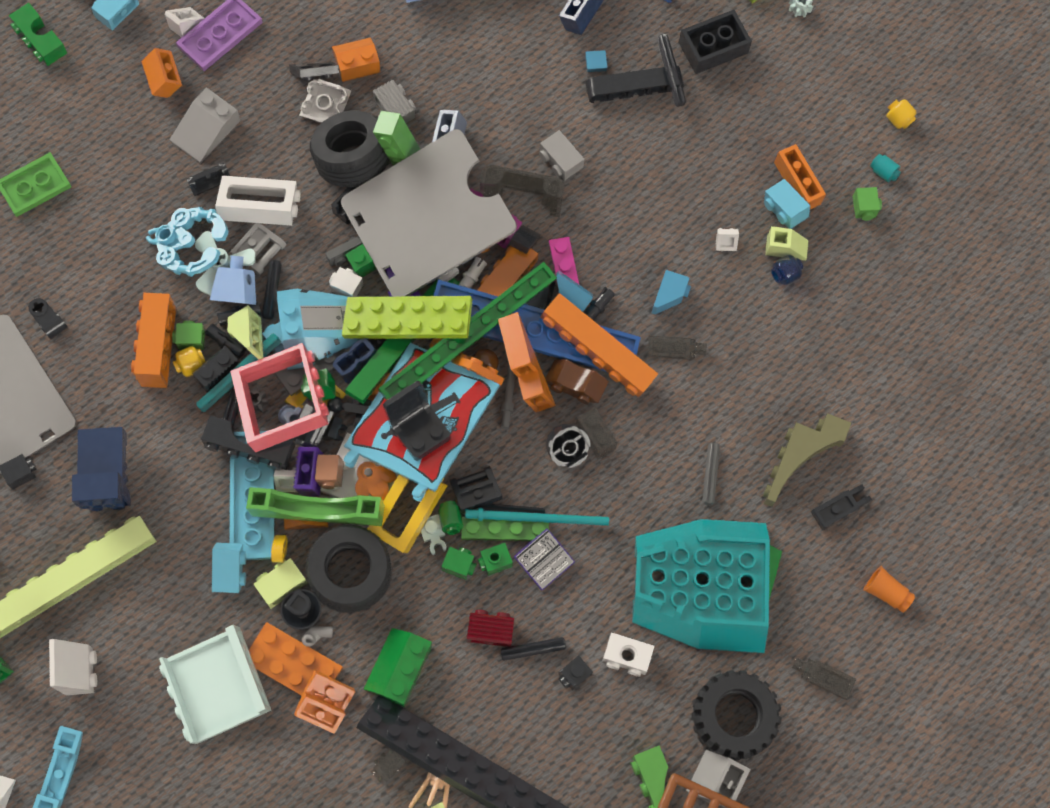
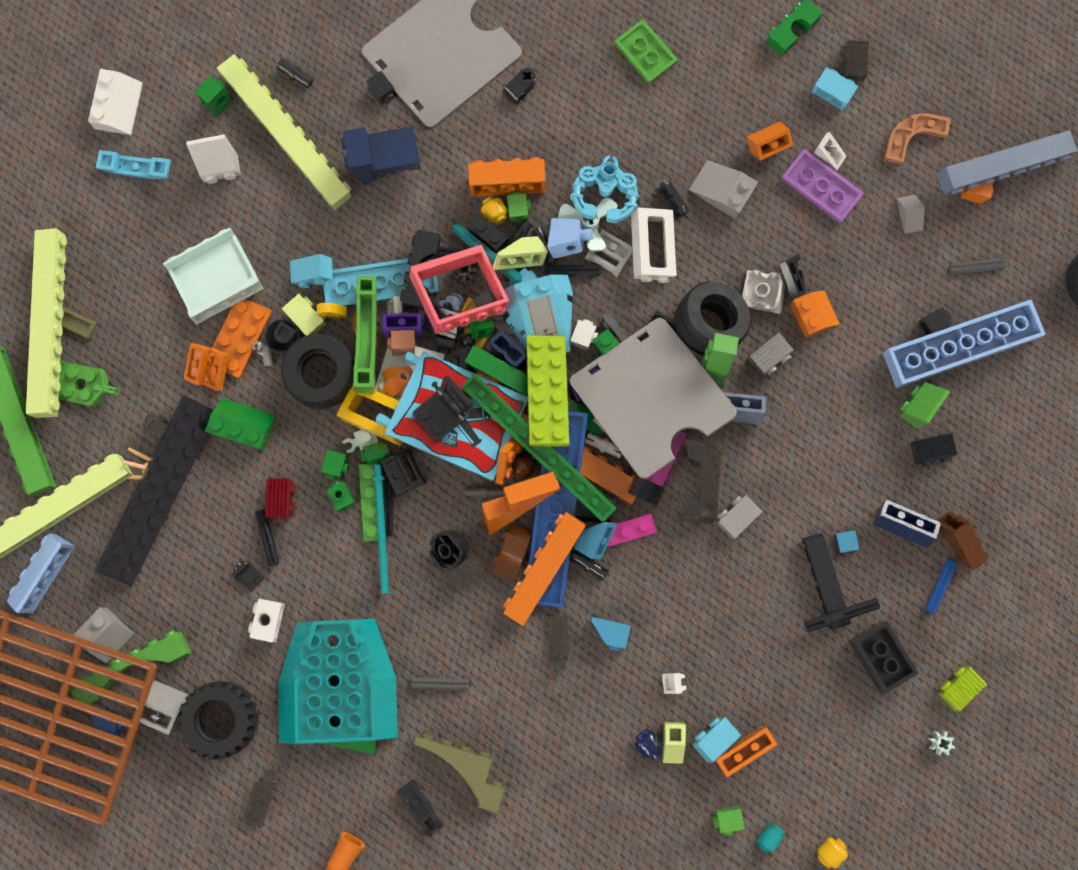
camera: 90 degrees right, 10 degrees up
(544, 559) = (344, 538): light grey tile -> none

